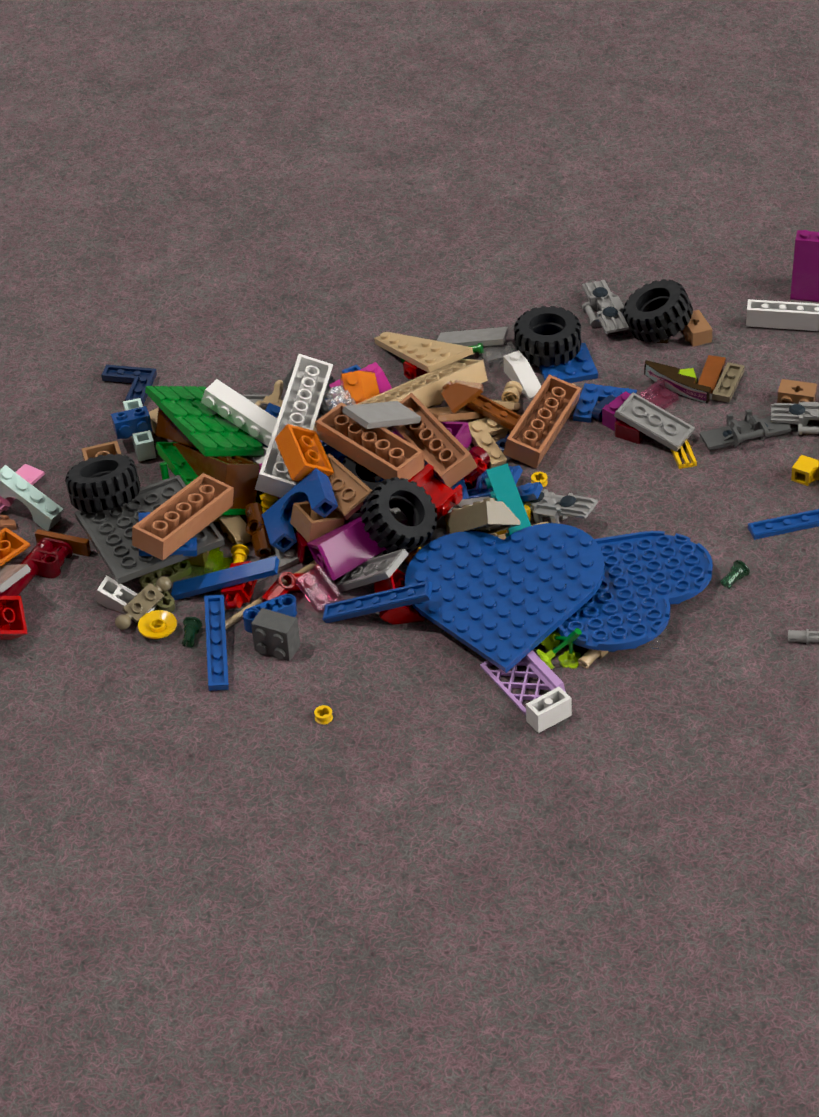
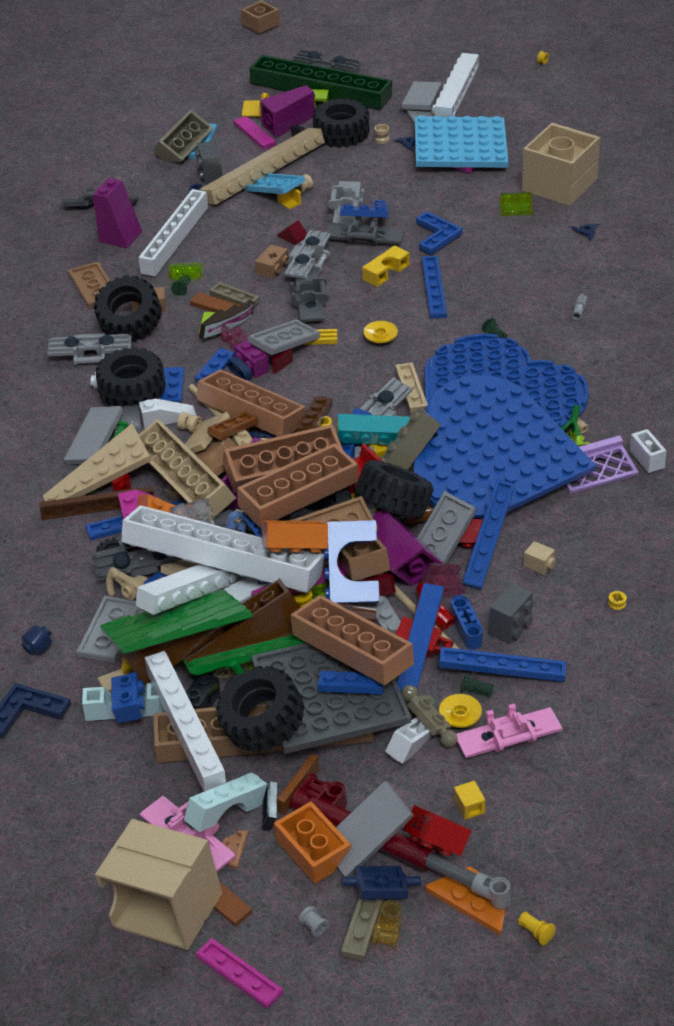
camera: 80 degrees left, 0 degrees up
(28, 531) = (269, 806): none -> black tile
(50, 640) = (469, 800): none -> yellow panel
(121, 441) = (185, 721): none -> white brick
(142, 658) = (507, 731): none -> bright pink piece
(149, 468) = (204, 691): none -> black brick
(206, 369) = (36, 640): none -> dark blue head
(368, 650) = (539, 558): none -> tan brick
(381, 357) = (84, 504): none -> reddish brown plate
(381, 414) = (266, 464): light grey tile -> none
(460, 393) = (213, 434): dark orange slope -> none
(541, 467) = (315, 413): none -> reddish brown plate
(620, 526) = (407, 375): none -> tan plate
(699, 491) = (380, 331): none -> yellow dish
(718, 290) = (89, 281): none -> medium nougat tile
(731, 343) = (180, 286): none -> clear green pin
(761, 342) = (193, 269): none -> clear neon green bracket

